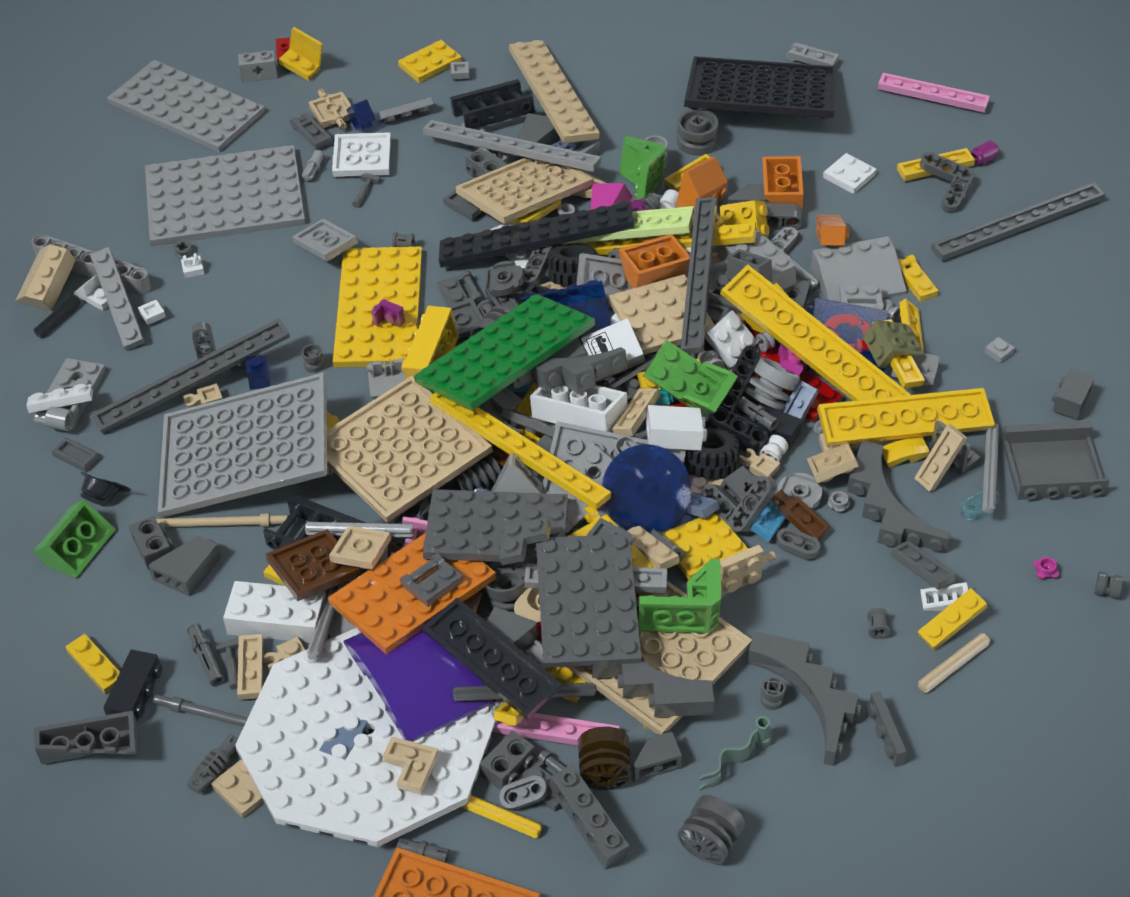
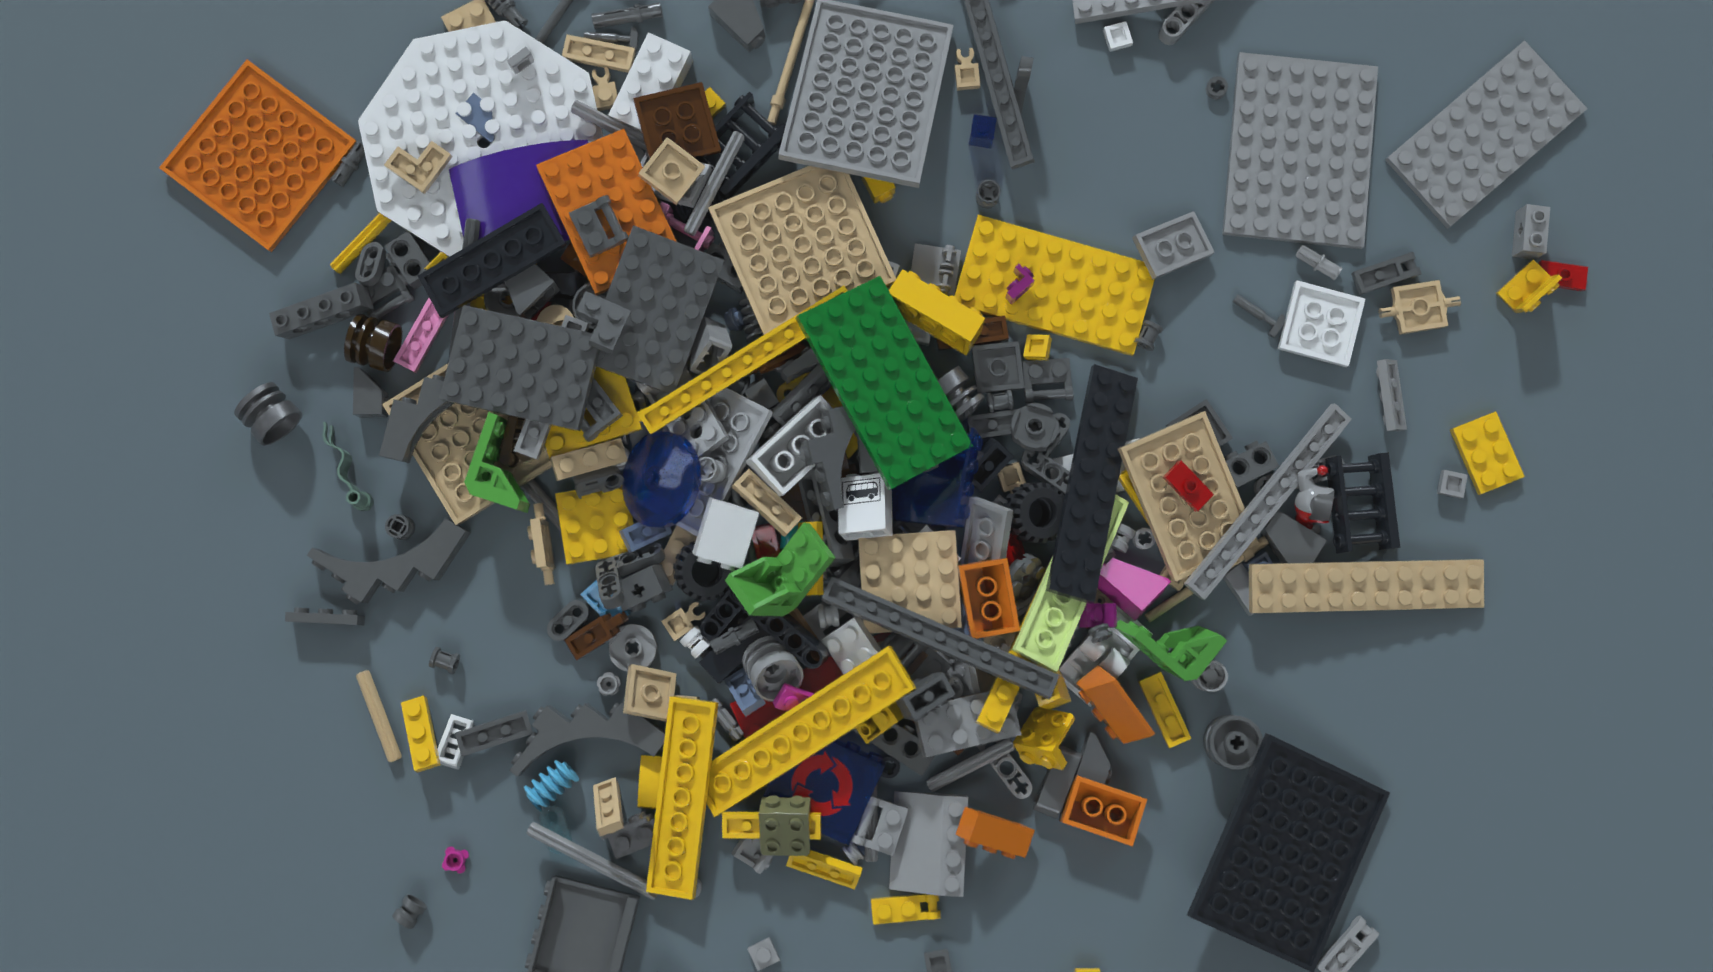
camera: 105 degrees right, 35 degrees up
(192, 266) = (1183, 93): white tile -> none
(277, 707) = (520, 60): none -> light grey tile
(361, 115) = (1390, 337): clear blue brick -> none
(435, 298) = (1037, 347): none -> yellow plate
(500, 124) = (1313, 501): none -> light grey piece
(517, 181) = (1188, 486): none -> red plate
(849, 173) = (1109, 906): white plate -> none
(944, 514) = (551, 784): none -> medium azure piece

